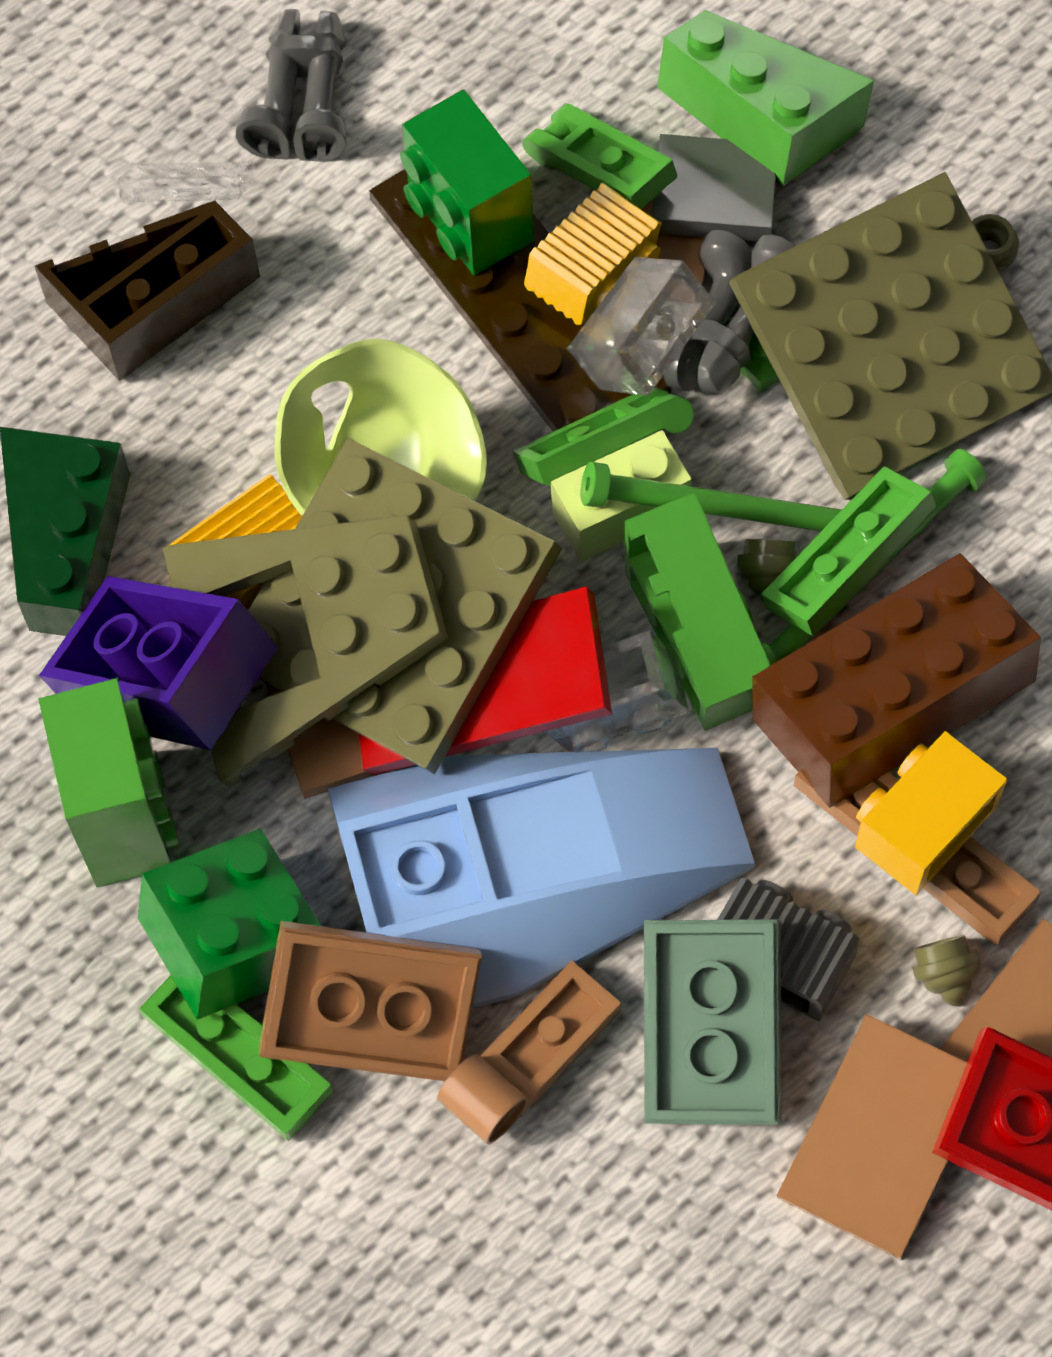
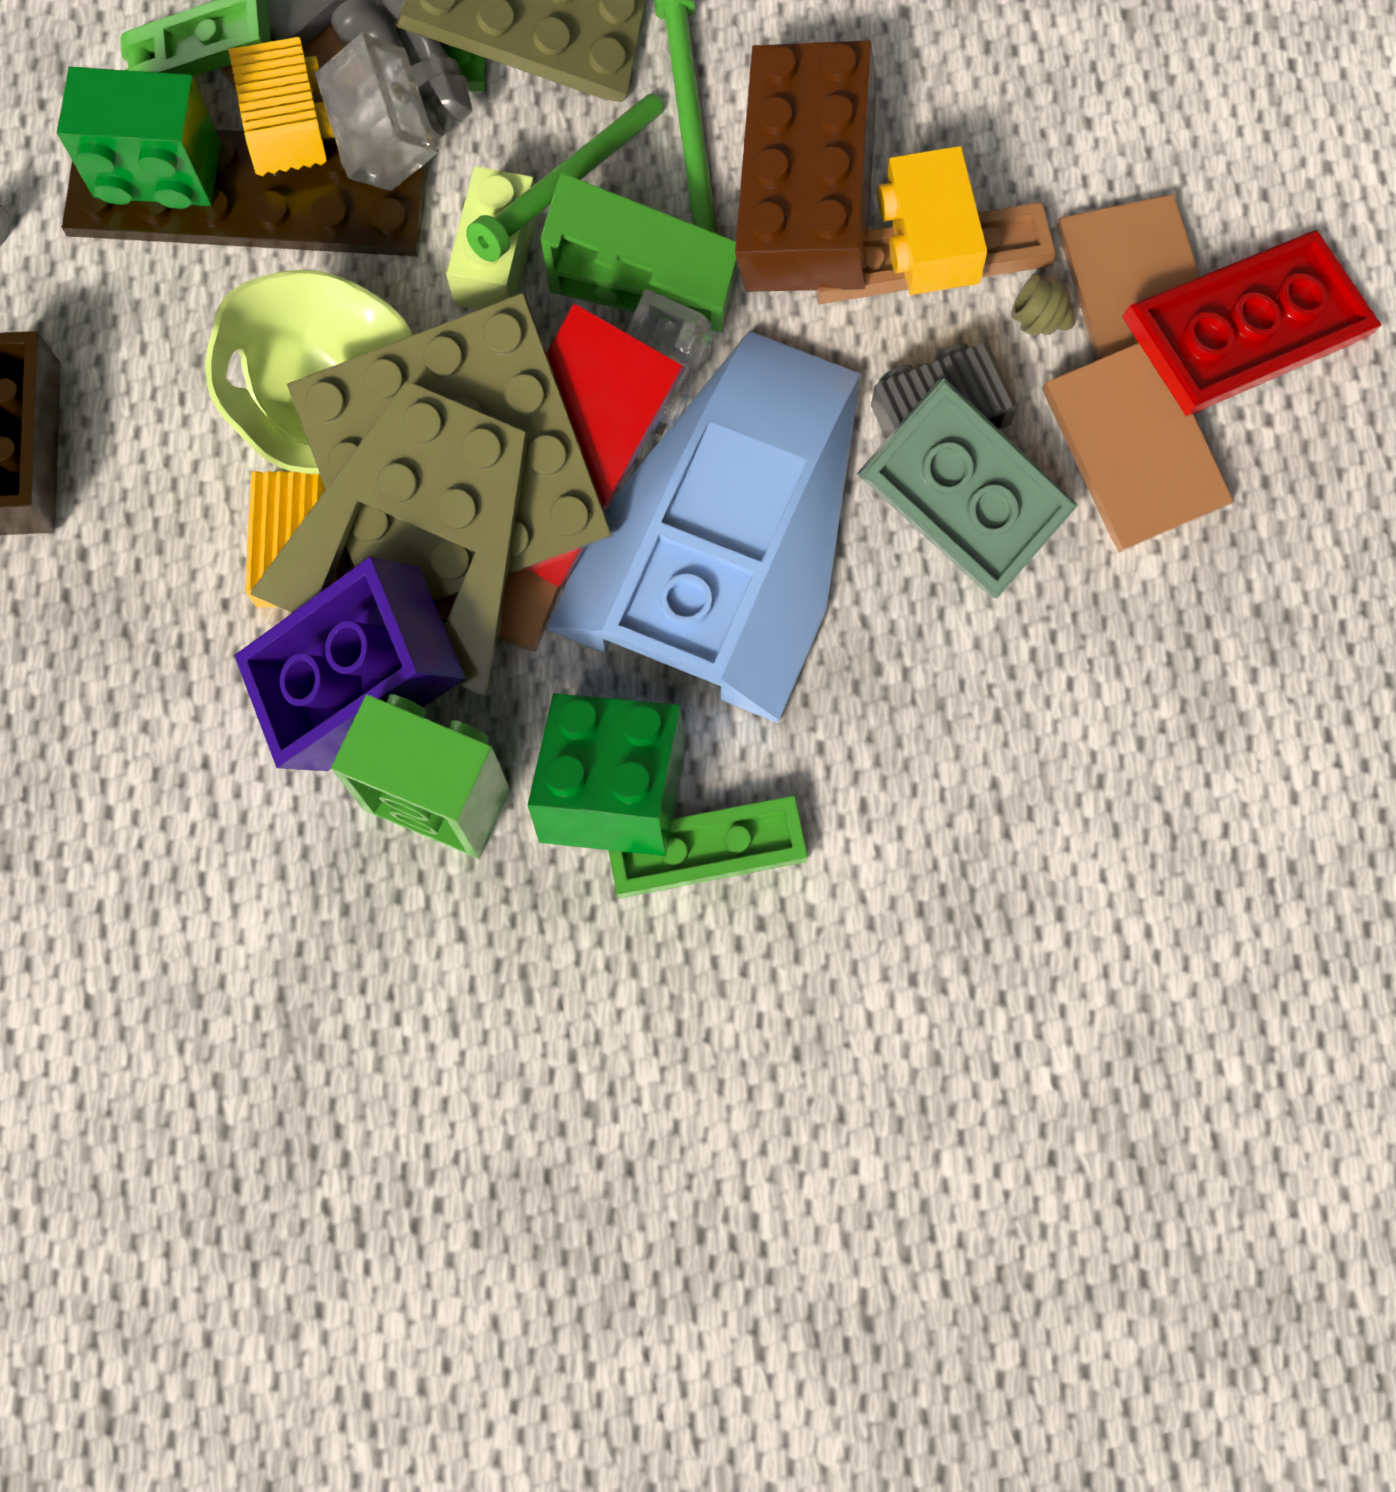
camera: 55 degrees left, 10 degrees up
(62, 521) = (145, 659): dark green wedge -> none
(369, 1001) = (759, 717): medium nougat tile -> none
(529, 1055) = (883, 636): medium nougat plate -> none
(603, 434) = (432, 216): bright green plate -> none
(764, 561) = (636, 182): olive plate -> none
(848, 550) = (677, 121): bright green plate -> none

